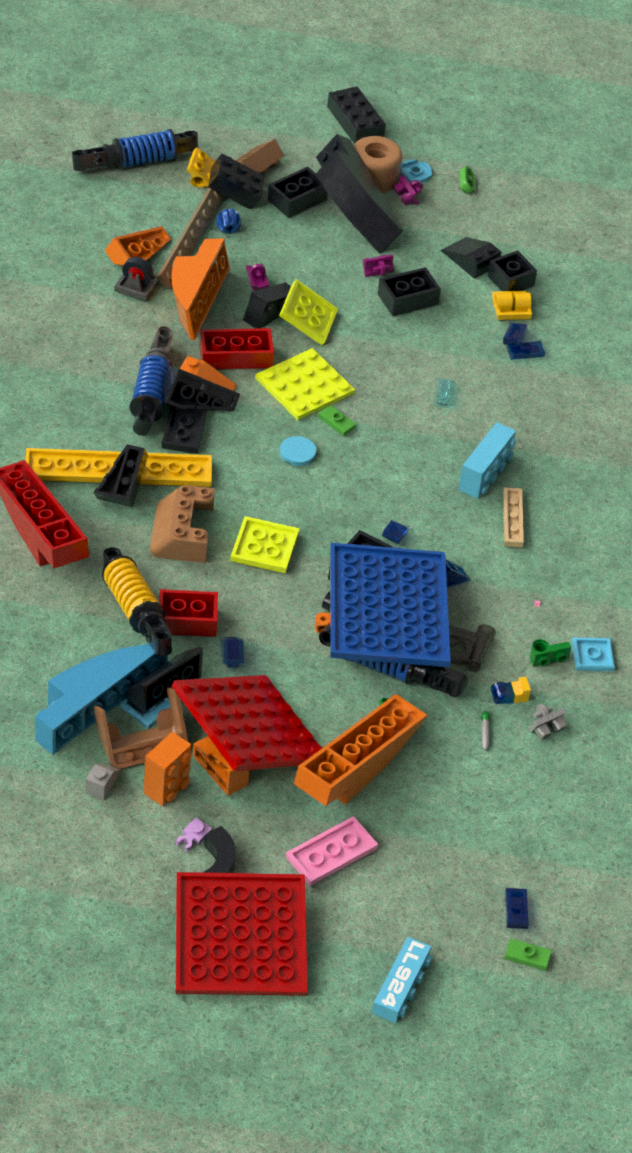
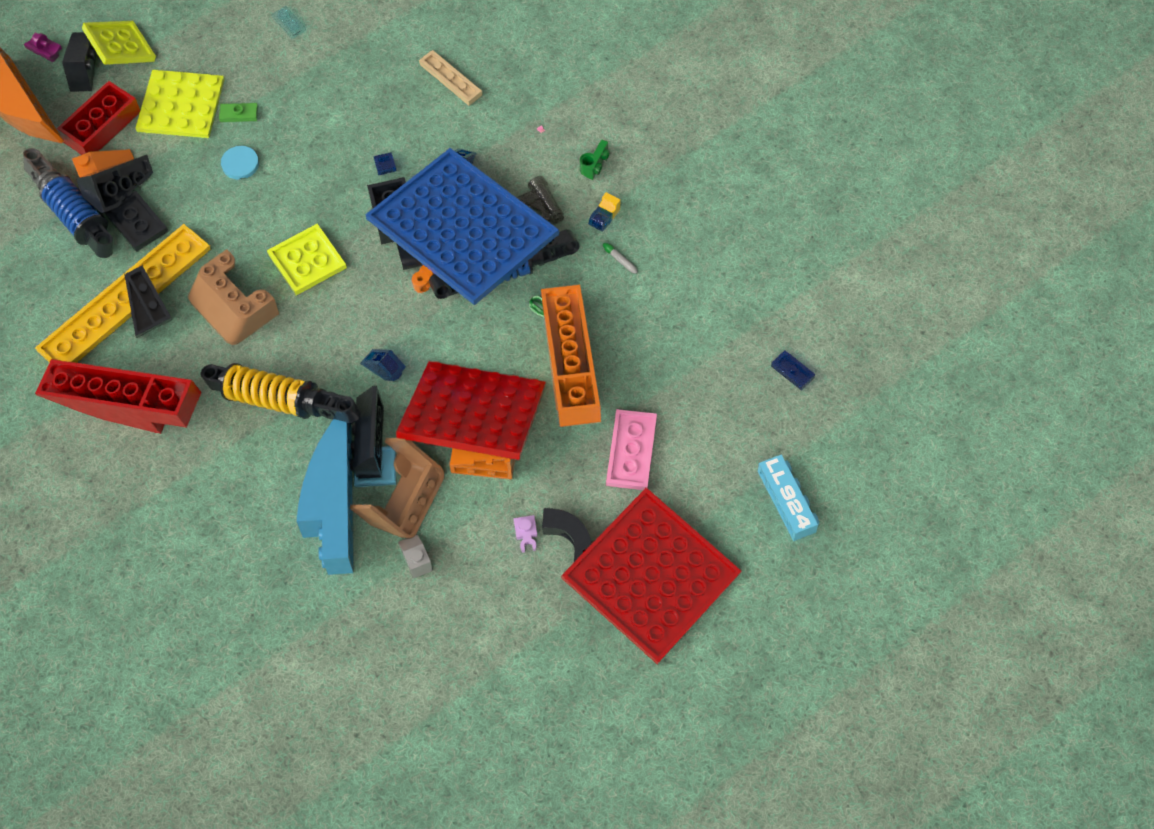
camera: 40 degrees left, 15 degrees up
(167, 769) = (462, 503): orange brick -> none
(190, 612) = (322, 362): red brick -> none
(487, 460) = (388, 48): medium azure brick -> none
(527, 954) = (836, 396): bright green plate -> none
(540, 725) = (650, 211): light grey hips -> none
(593, 654) = (620, 133): medium azure tile -> none

